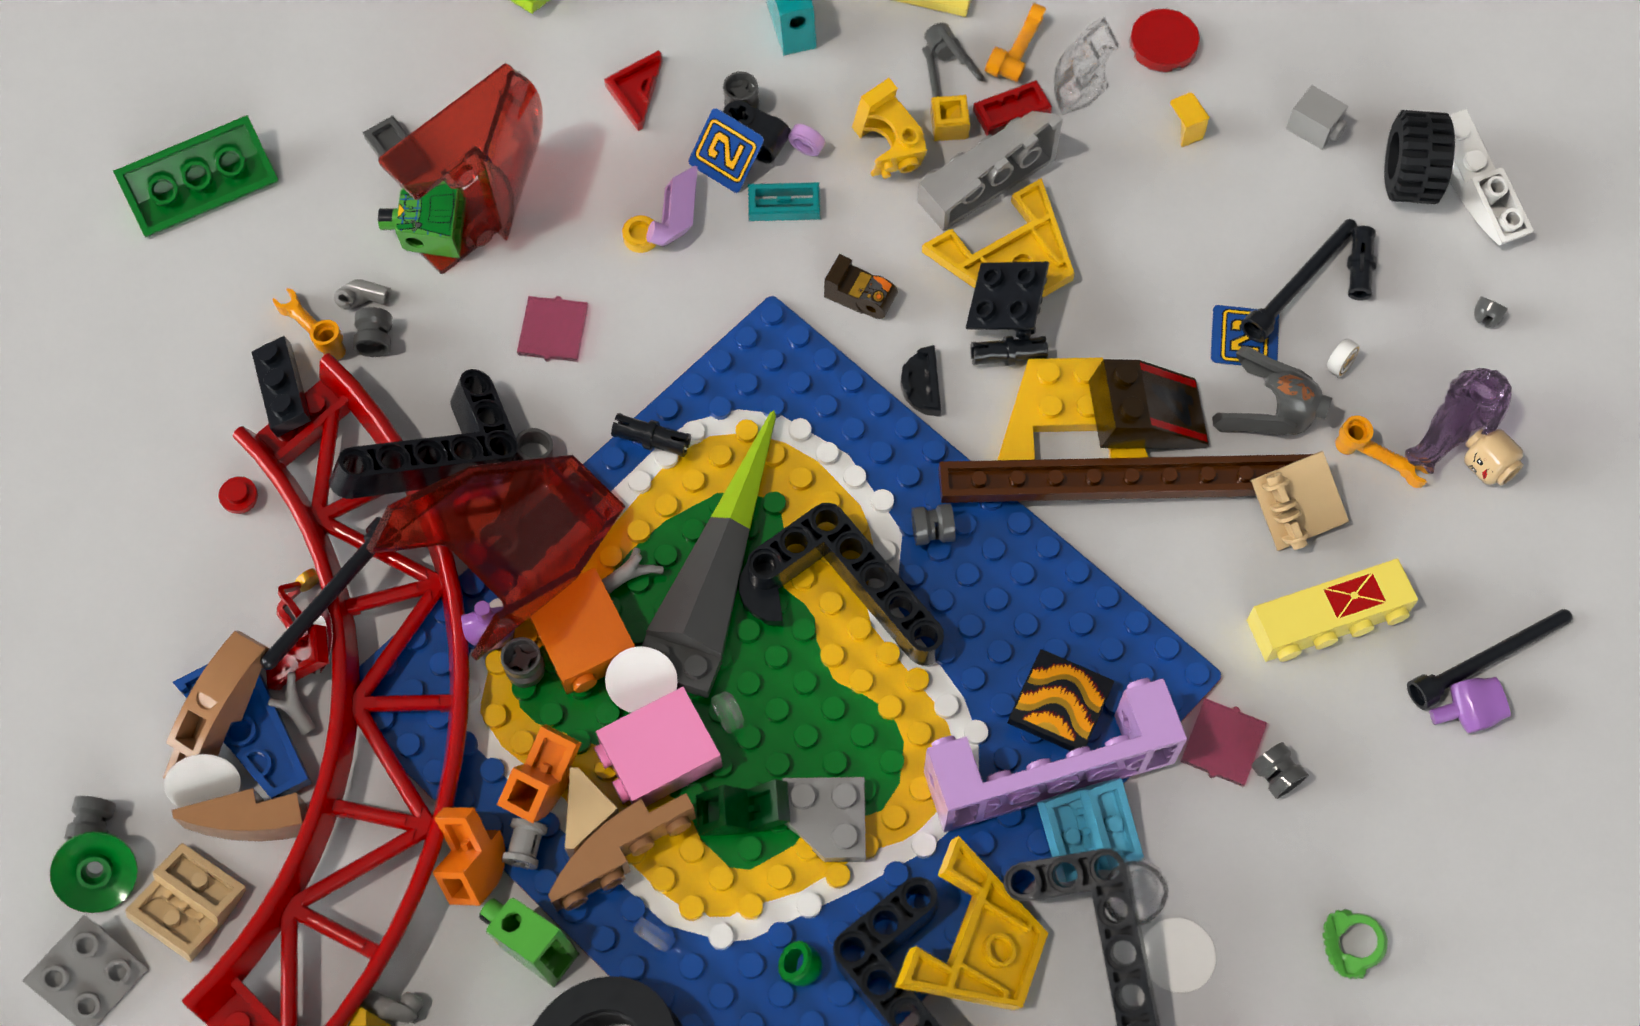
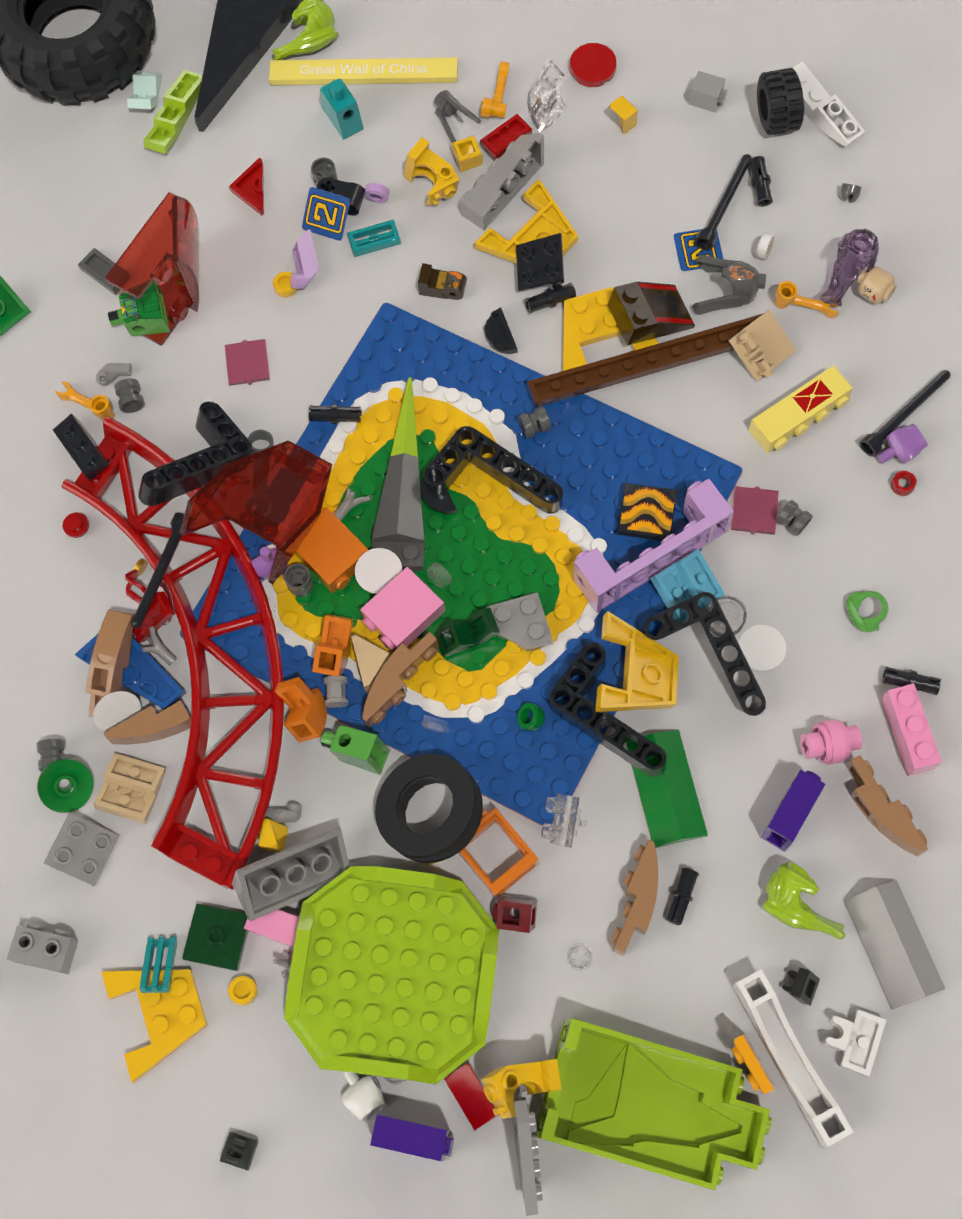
camera: 10 degrees left, 5 degrees up
(1471, 758) = (909, 477): none -> red axle

